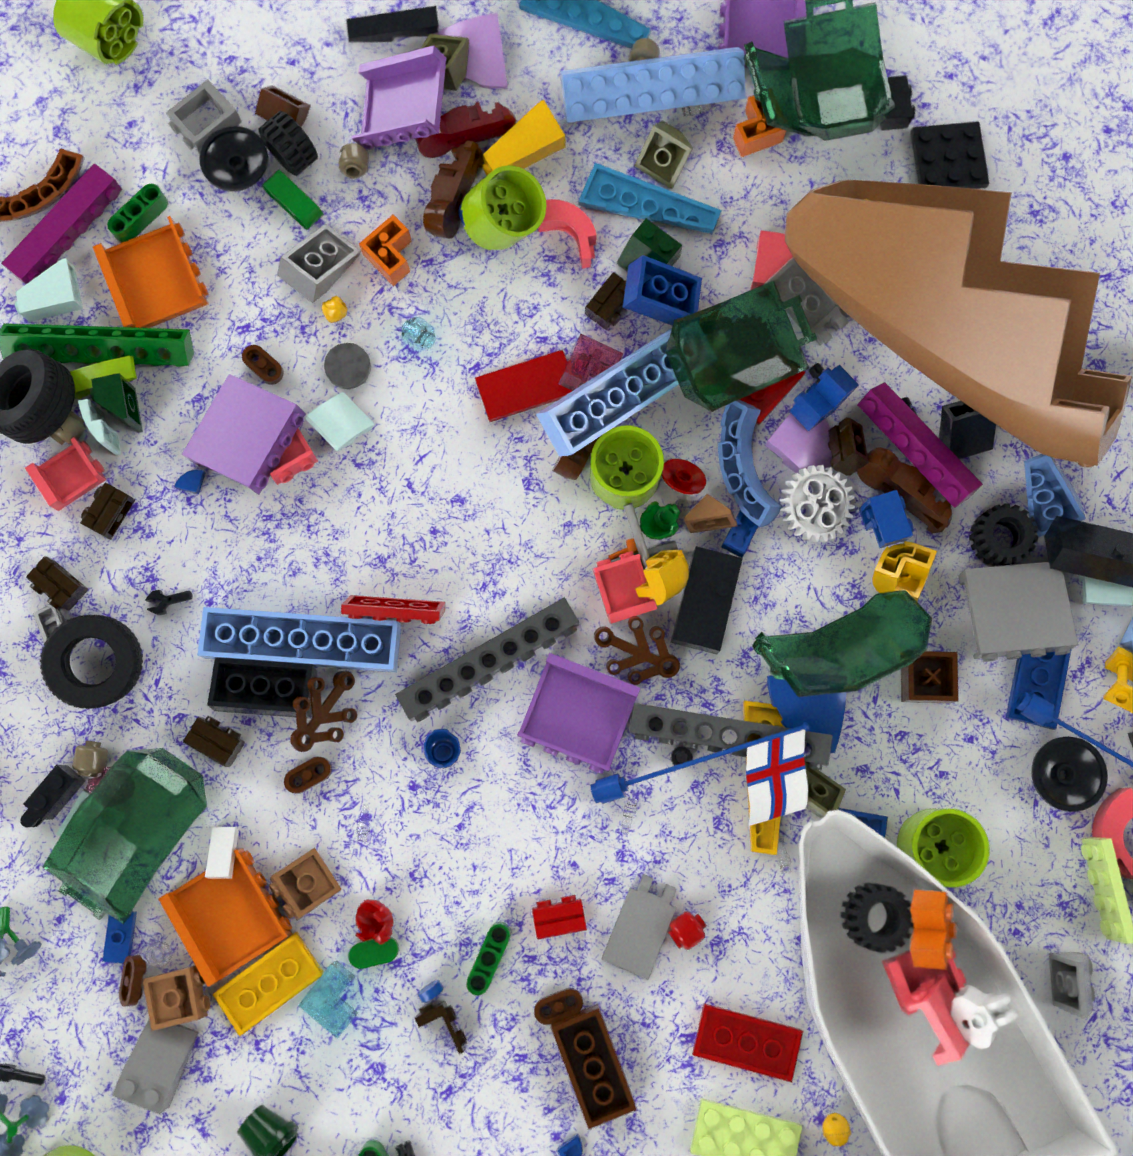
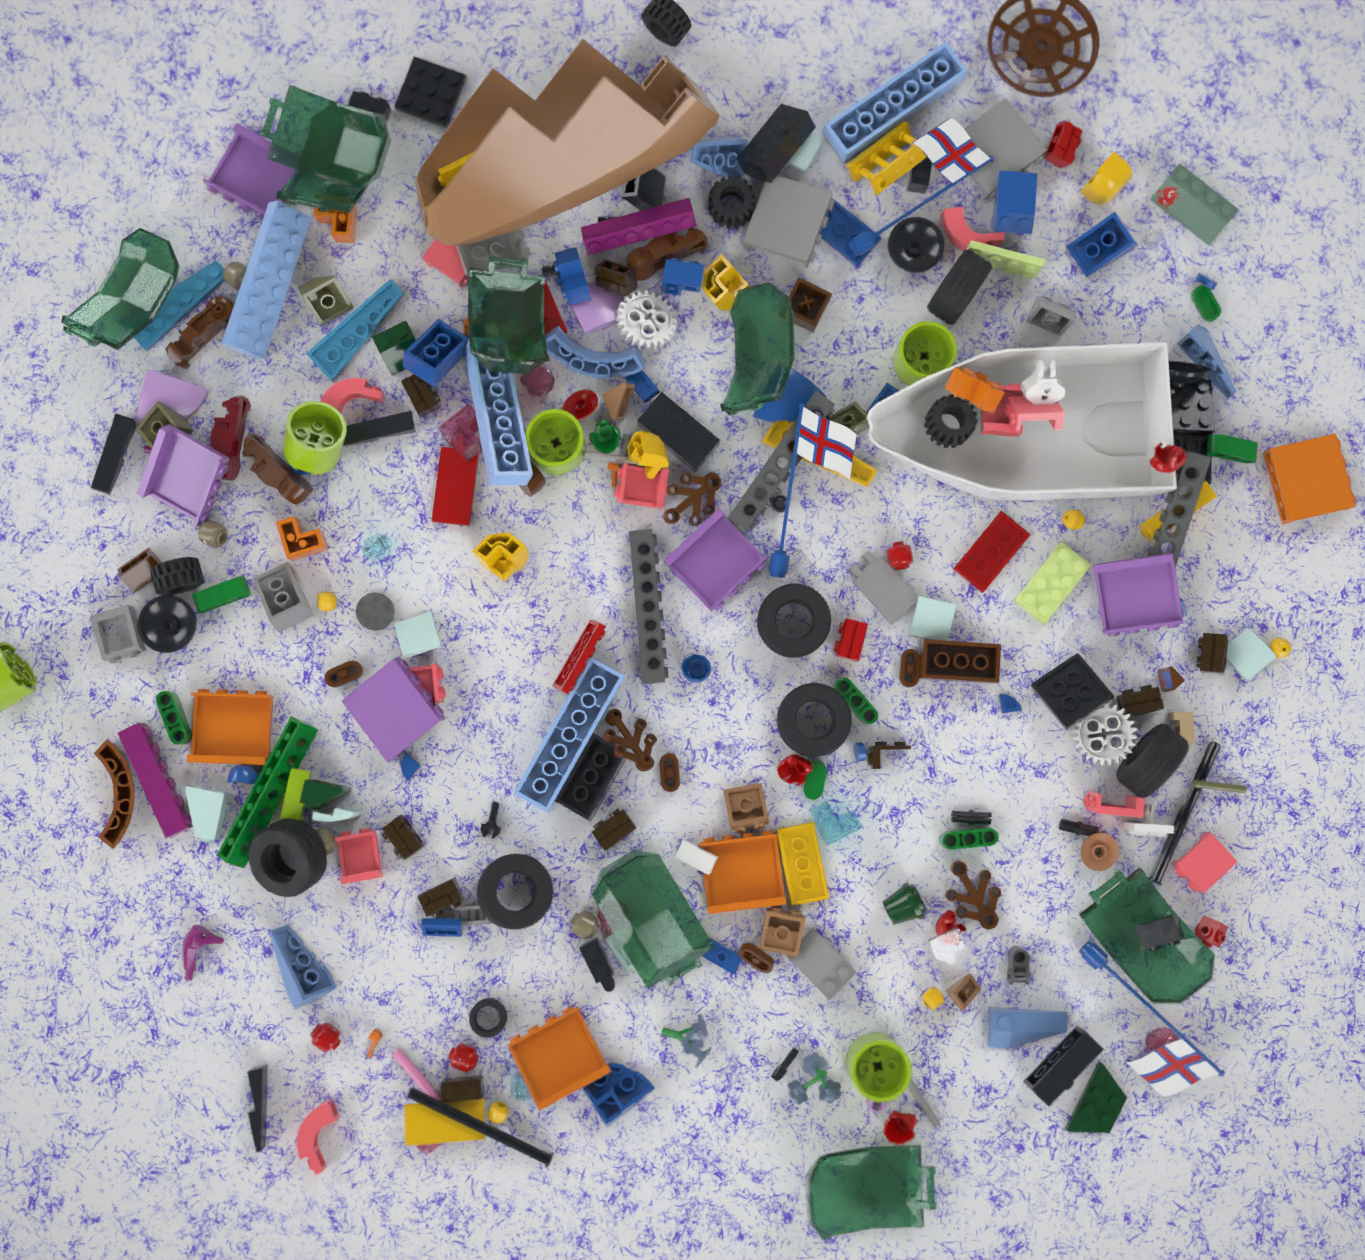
camera: 70 degrees left, 5 degrees up
(23, 600) = (441, 927): none -> blue plate
(103, 310) = (242, 773): none -> blue hair
(417, 943) = (840, 715): none -> black tyre
(471, 469) = (501, 554): none -> yellow brick
(527, 142) = (263, 395): yellow slope -> none
(549, 274) = (379, 428): none -> black slope
(549, 873) = (794, 594): none -> black tyre
(565, 47) = (200, 330): none -> reddish brown piece
(630, 1007) = (932, 619): none -> light aqua slope
(687, 417) = (538, 381): none -> clear pink hair
(1047, 850) = (959, 287): none -> black tyre

